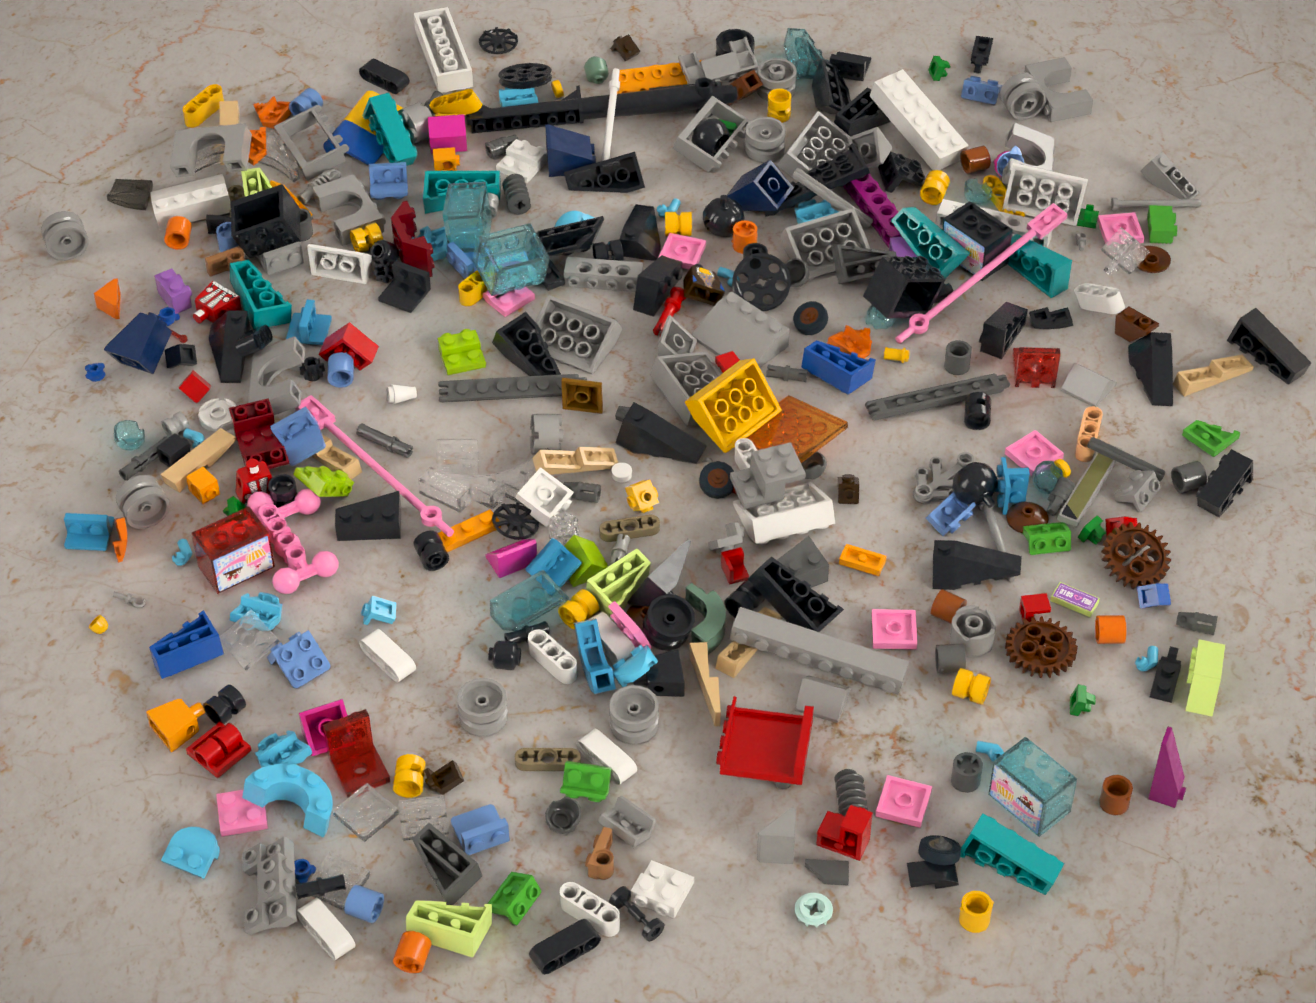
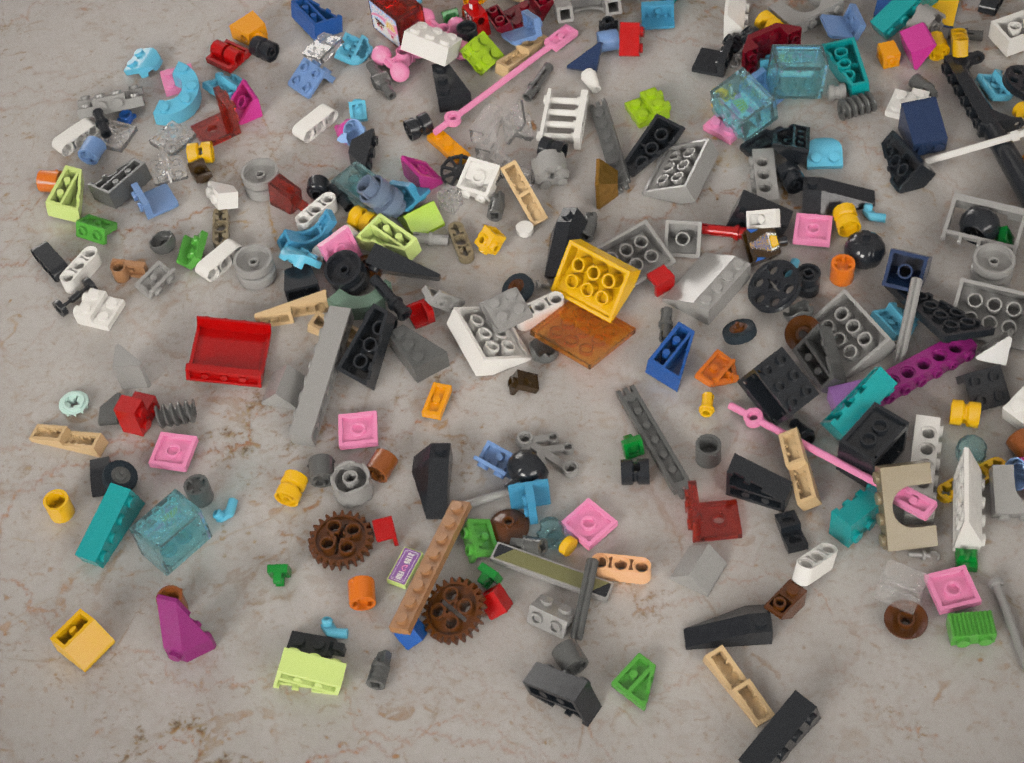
camera: 90 degrees right, 5 degrees up
(310, 512) = (431, 43): none -> white brick
(329, 586) = (381, 80): none -> dark grey pin
(367, 390) = (587, 60): none -> dark blue tile
(418, 620) = (349, 130): none -> light blue hat
(458, 406) = (577, 125): none -> white fence
(458, 608) = (363, 148): none -> black slope
(496, 751) = (222, 195): none -> white slope
(510, 433) = (548, 143): none -> black wheel
(520, 681) = (286, 195): none -> clear red torso
(563, 558) = (381, 196): none -> sand blue piece
(682, 268) = (763, 218): none -> white slope
(727, 577) = (394, 302): none -> black pin
(822, 274) = (795, 326): none -> reddish brown dish
(868, 914) = (64, 438): none -> tan slope
(942, 412) = (632, 446): none -> green tile
(986, 297) = (800, 470): none -> tan slope
(1063, 239) = (889, 481): none -> arch
(1090, 564) = (430, 568): none -> medium nougat plate
(1161, 879) = (82, 640): none -> yellow slope

